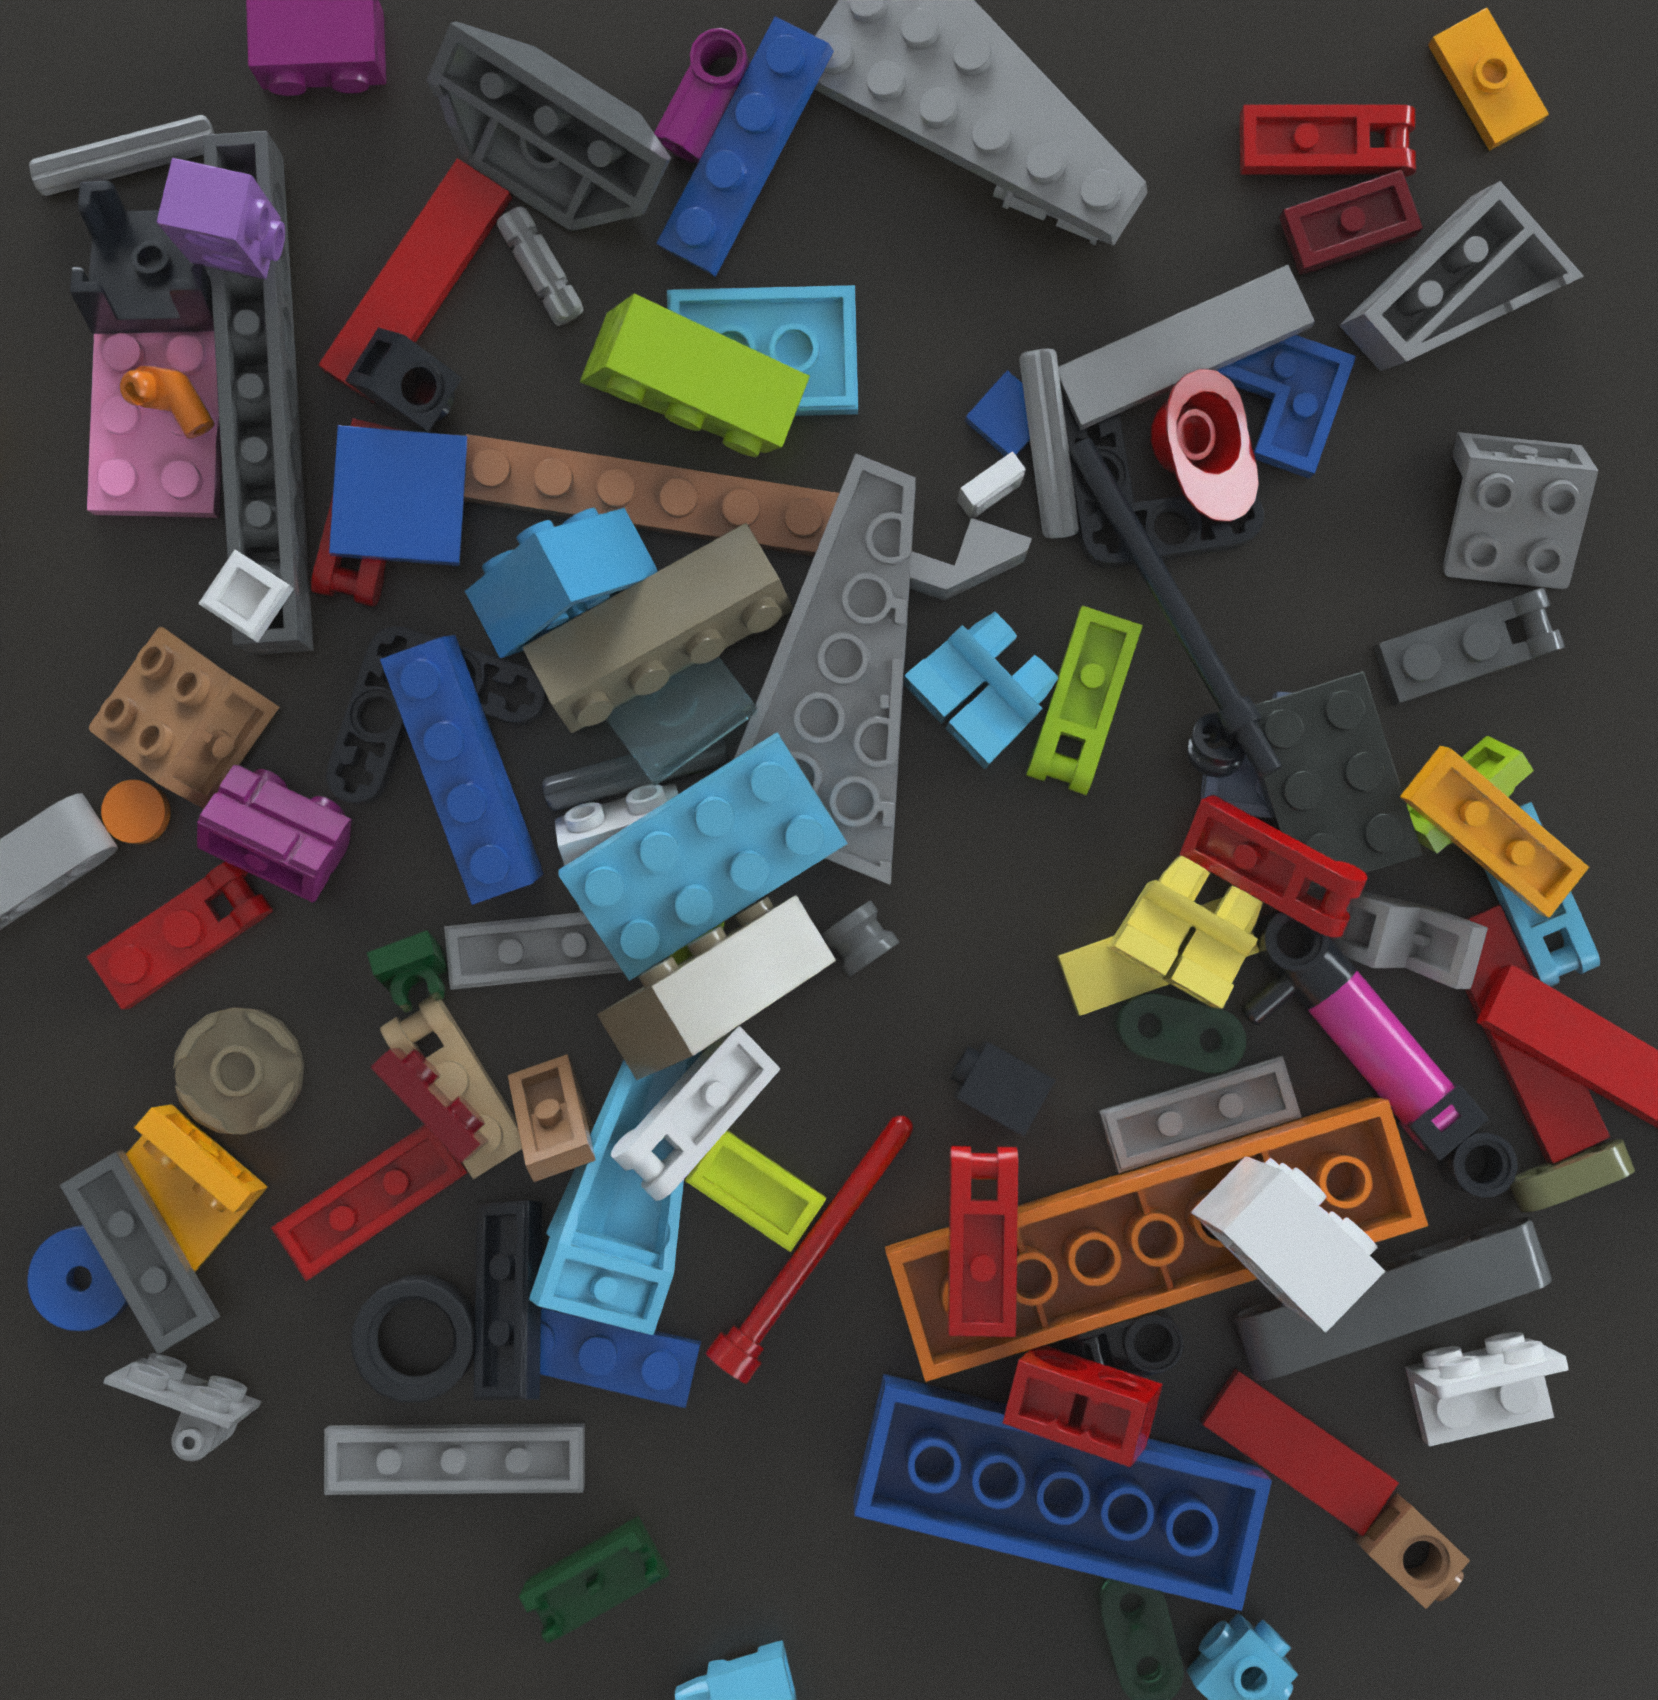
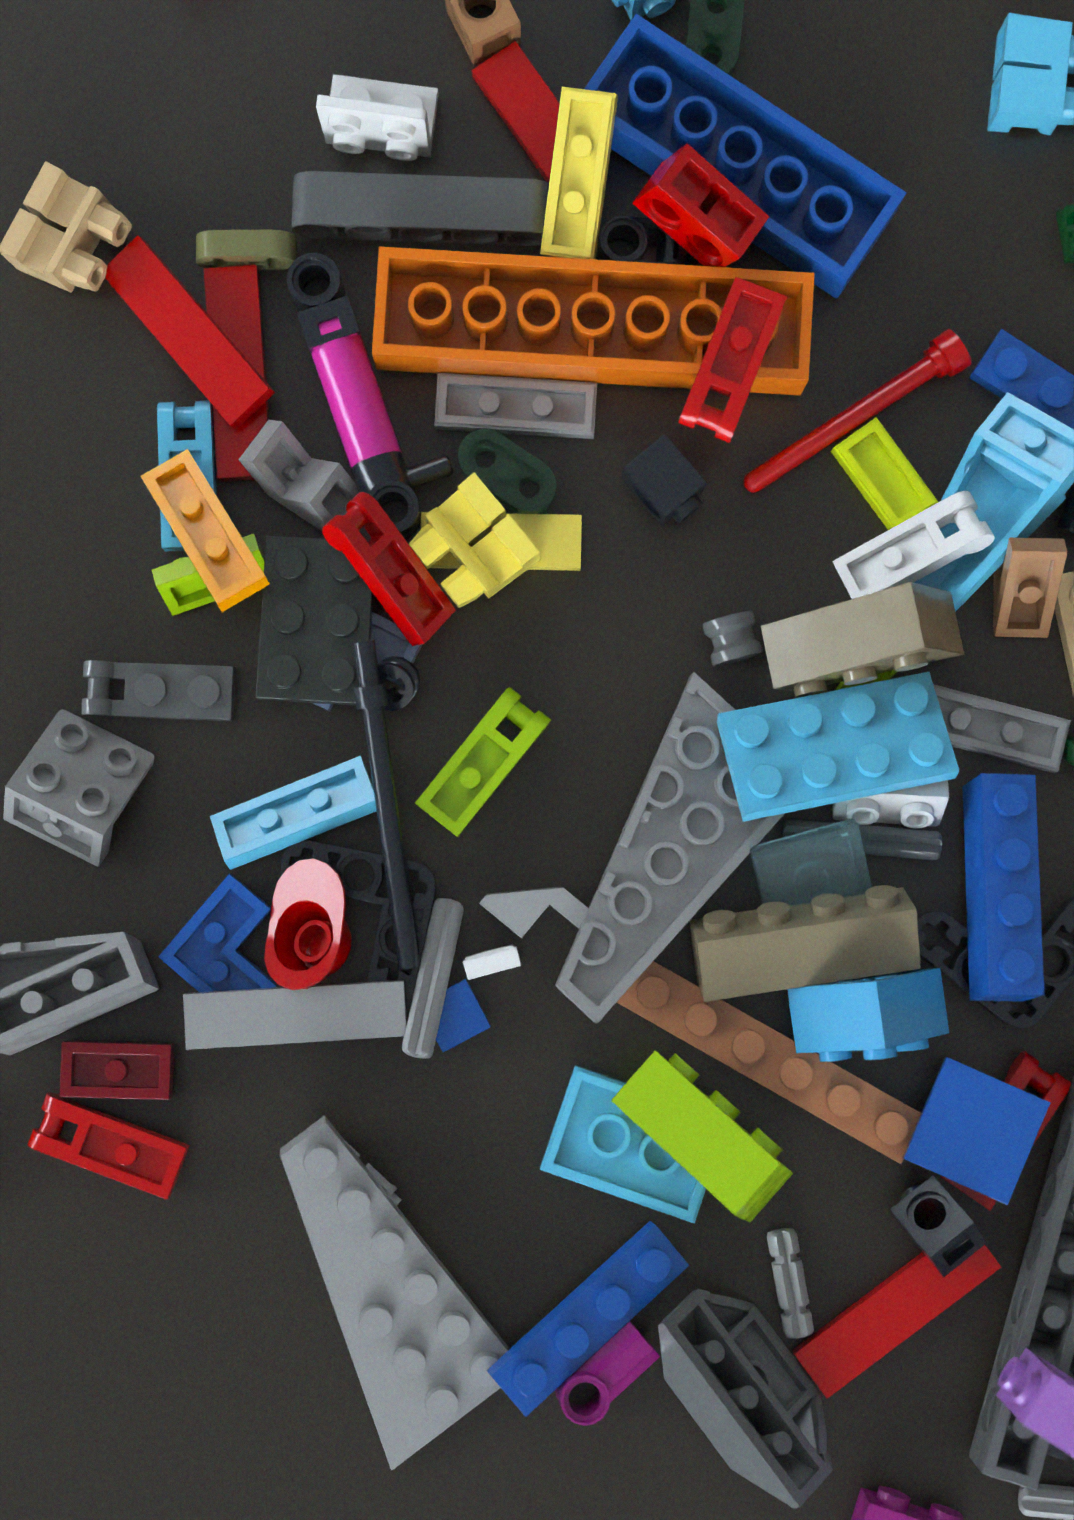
camera: 155 degrees left, 0 degrees up
(965, 665) = (555, 778): medium azure hips -> none
(1234, 1397) = (579, 173): none -> light yellow tile
(1271, 565) = (294, 813): none -> medium azure plate
(1288, 1241) = (504, 263): white brick -> none

